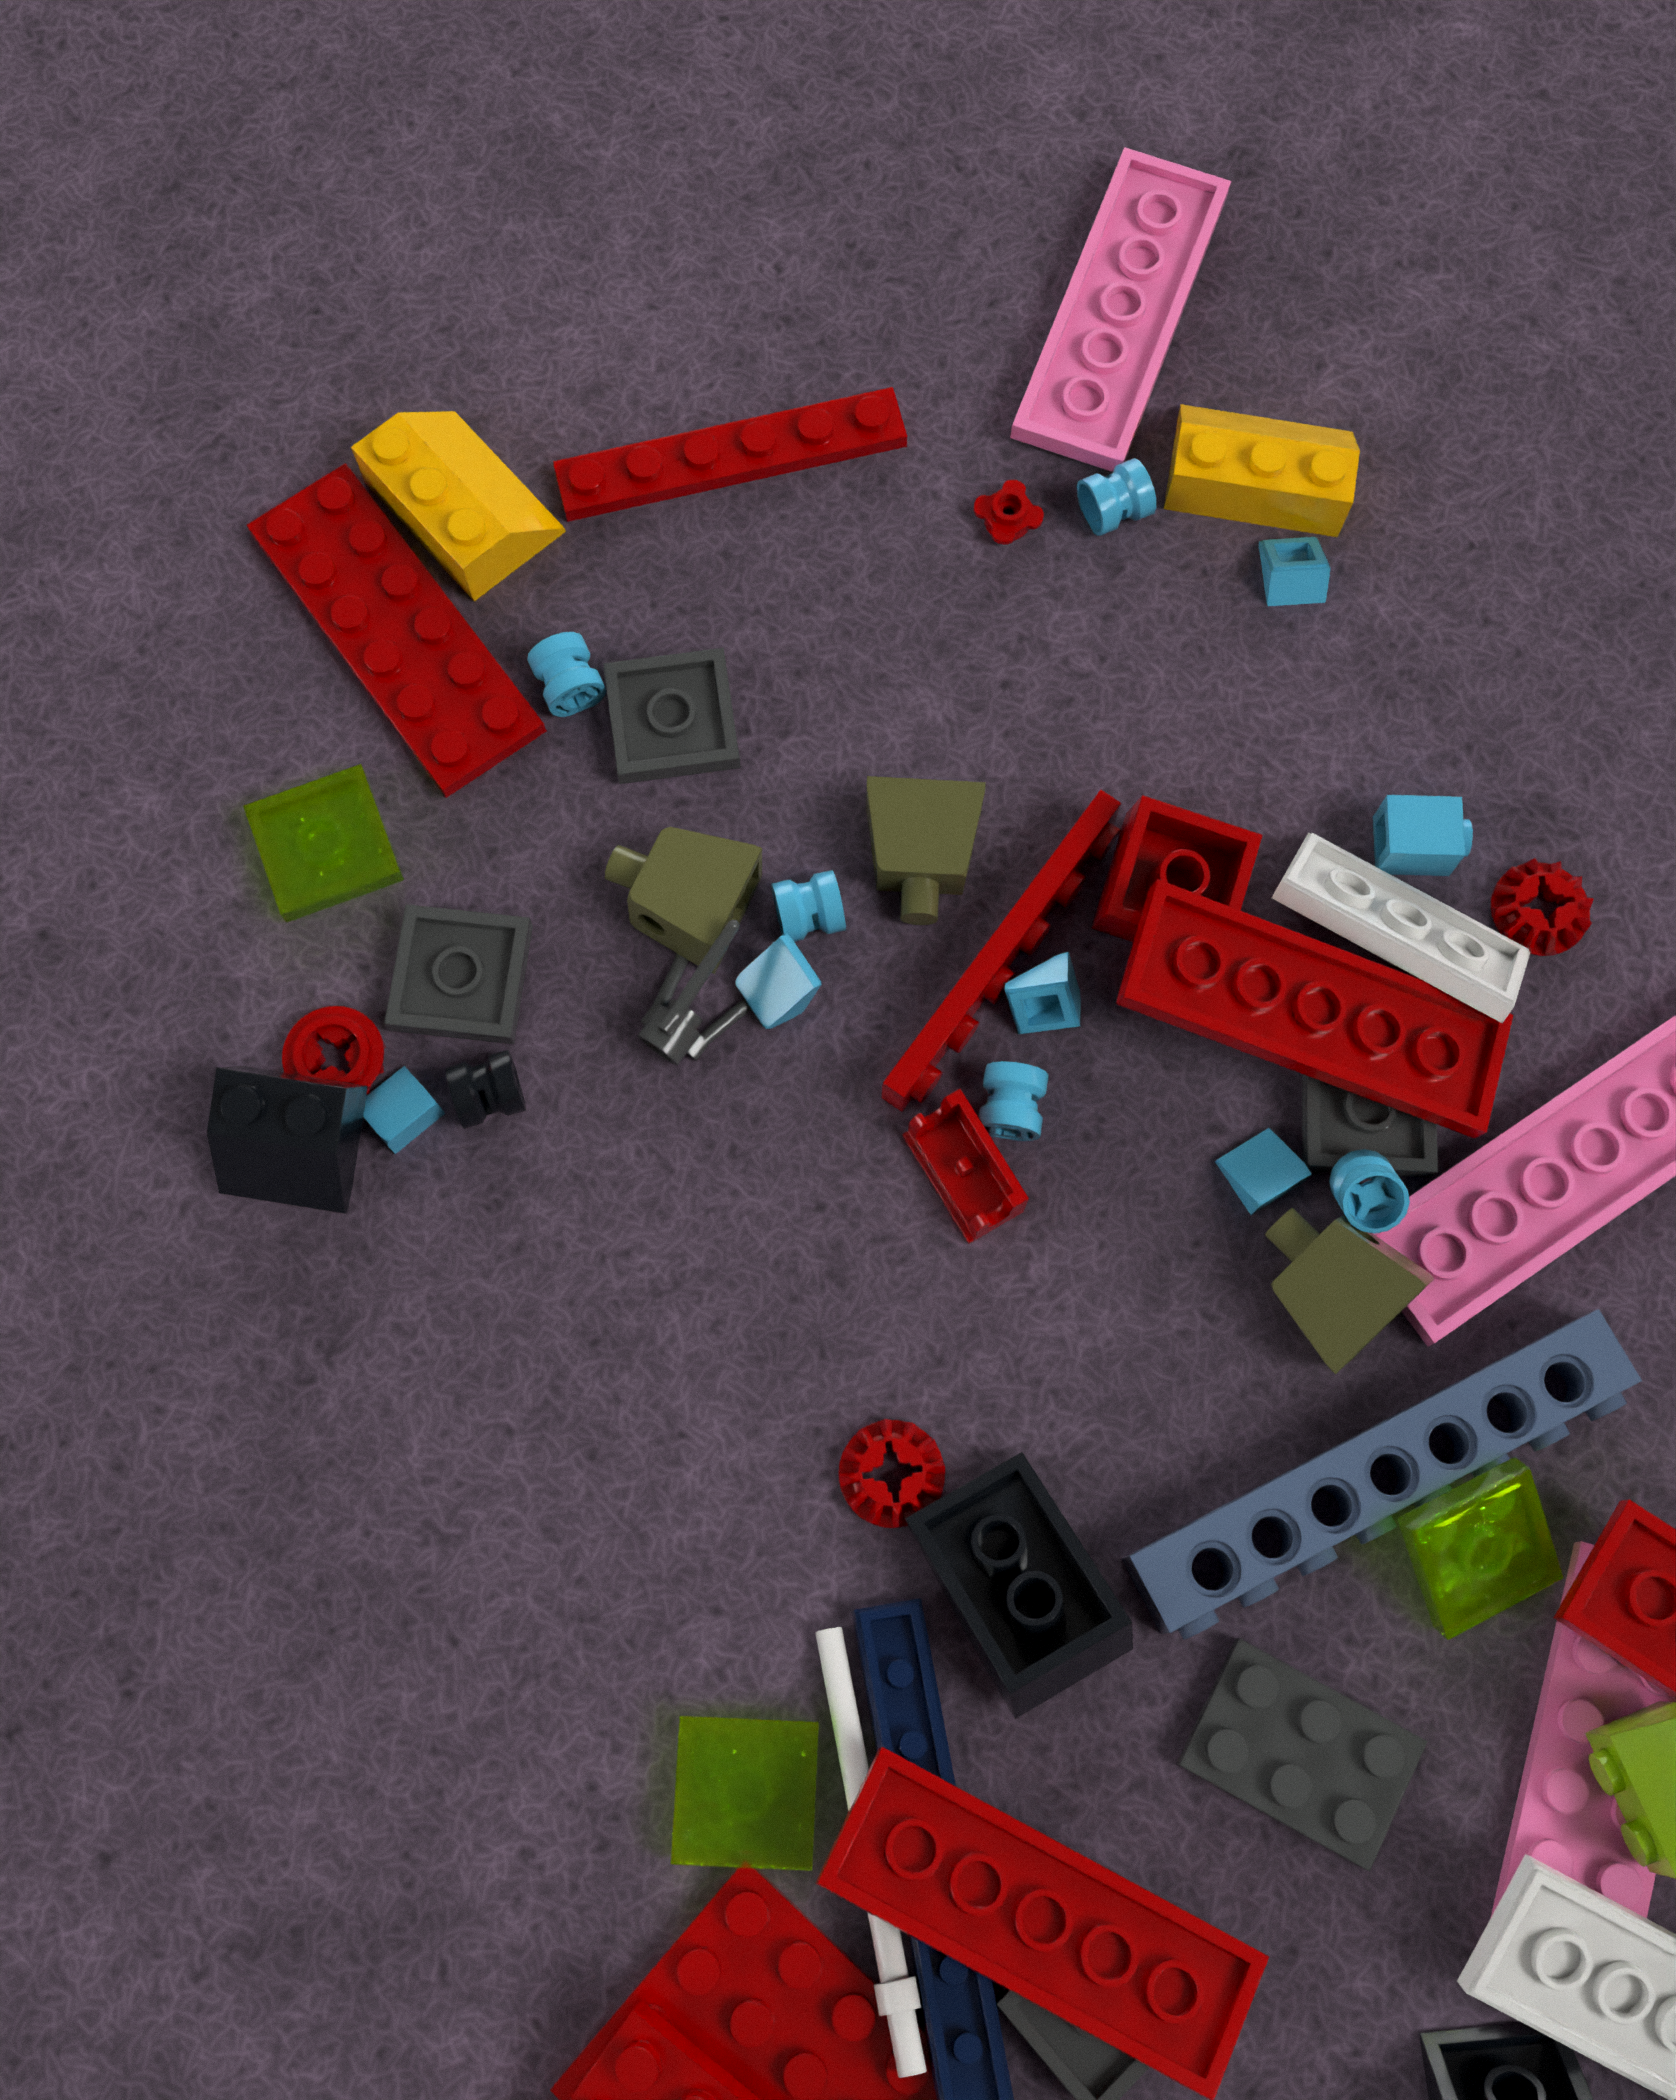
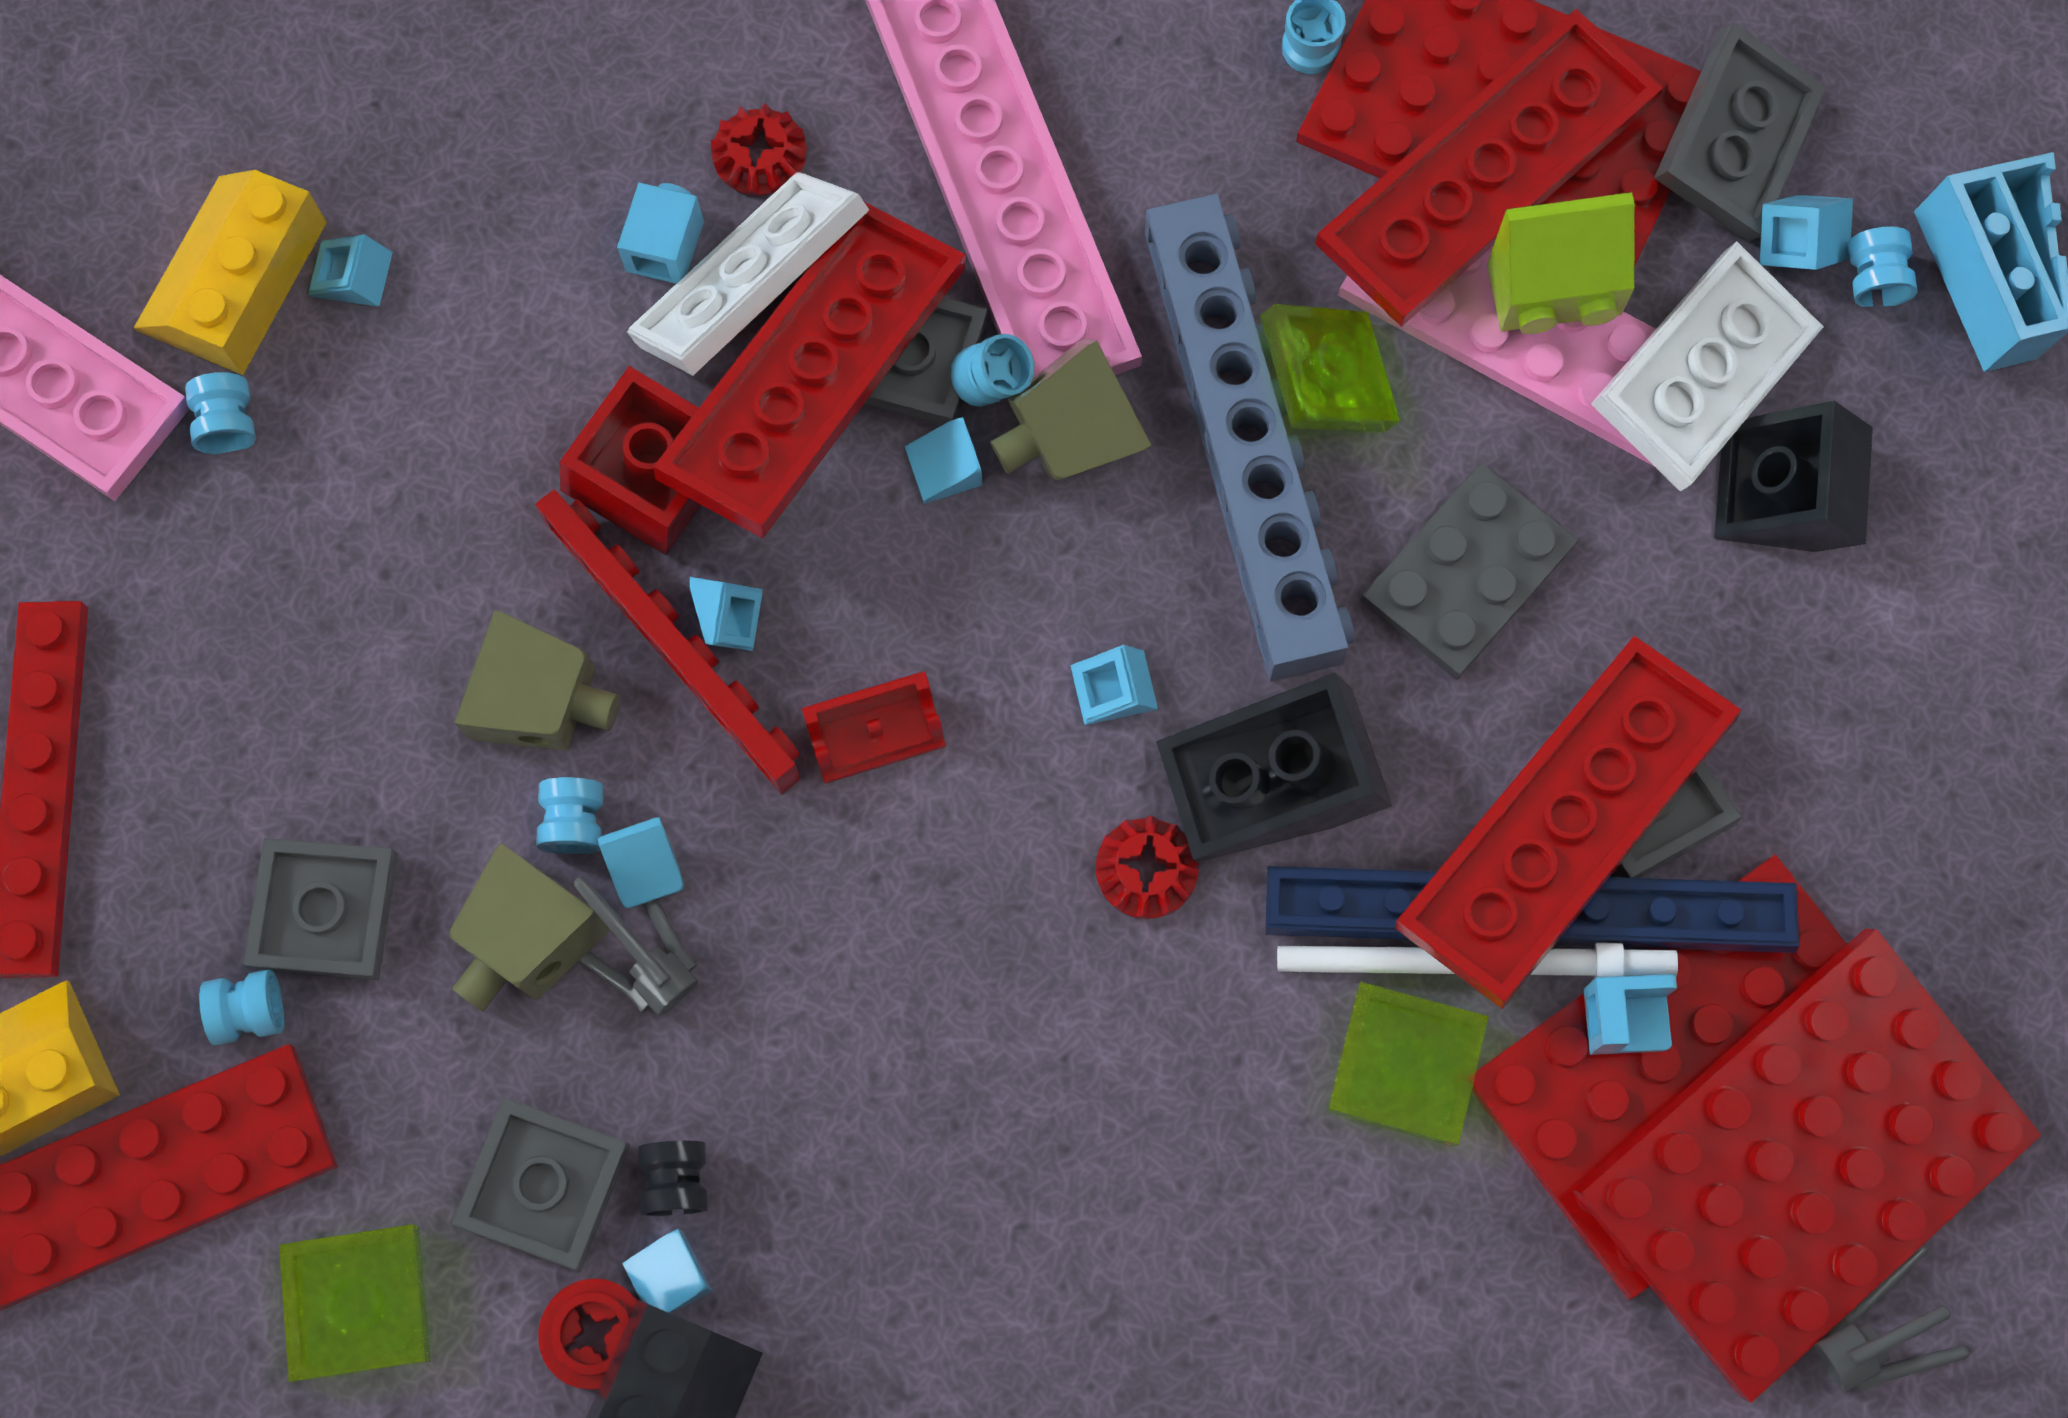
camera: 75 degrees left, 0 degrees up
(841, 2030) = (1629, 1013): none -> medium azure panel
(1005, 527) = (214, 533): red plate -> none
(1012, 1104) = (826, 670): medium azure wheel -> none
(1074, 1397) = (1113, 685): none -> medium azure slope

